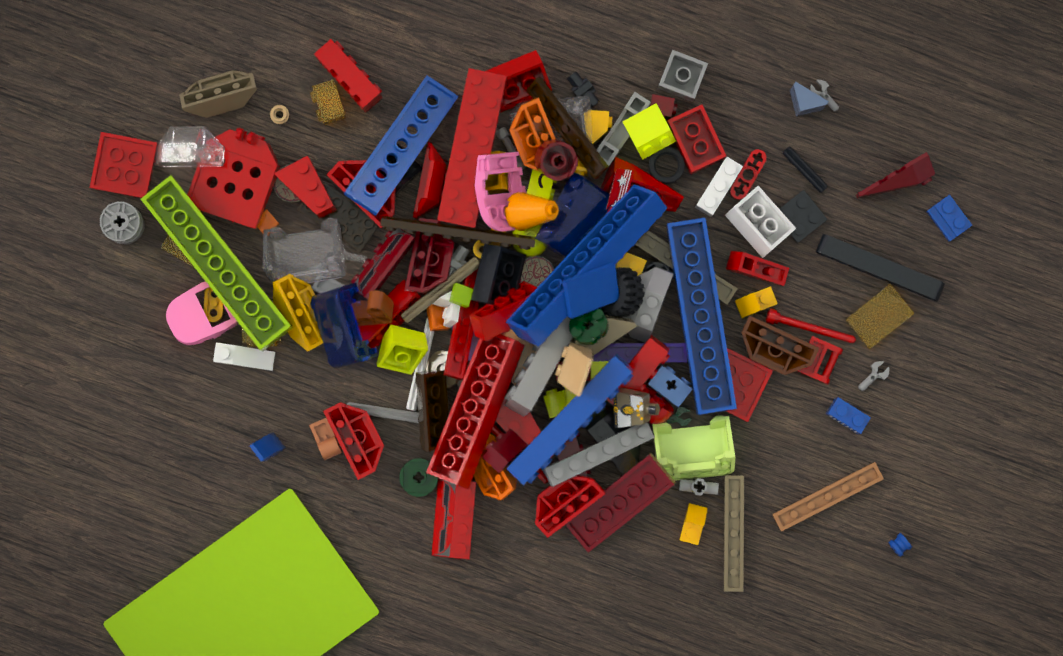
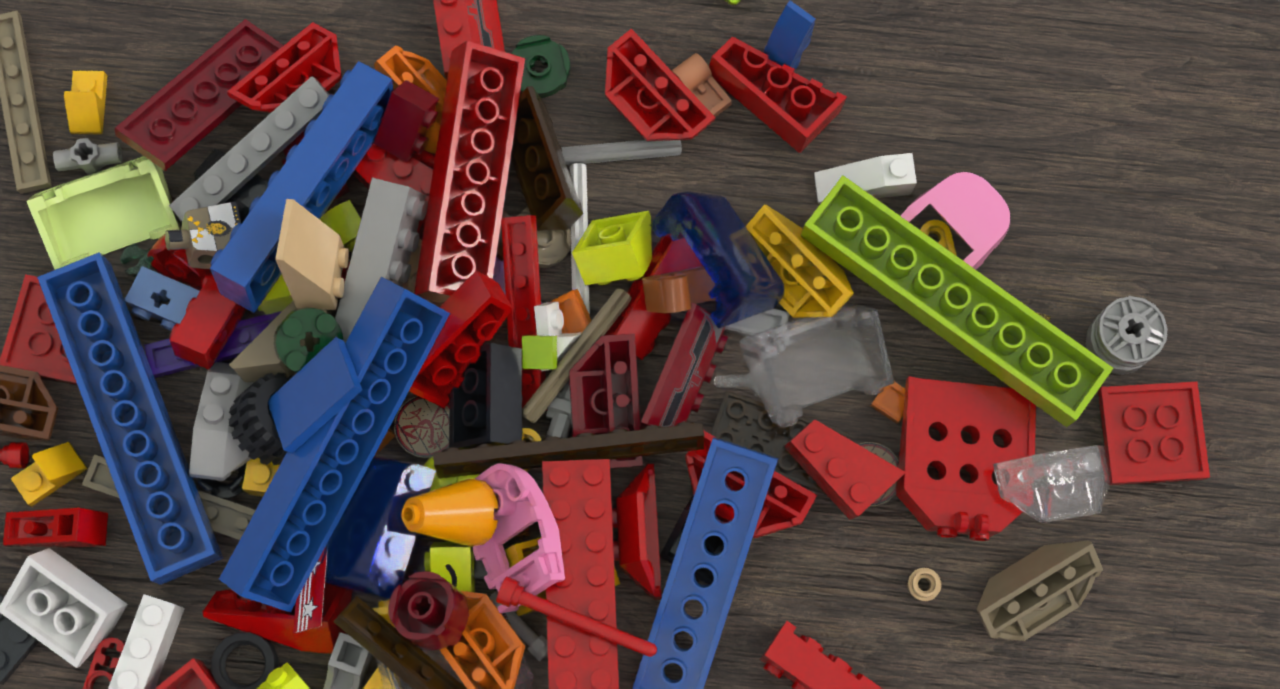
camera: 165 degrees right, 10 degrees down
(281, 420) = (775, 93): none -> red wedge
(328, 102) = (849, 624): clear yellow brick -> none
(508, 155) = (513, 594): none -> red piece

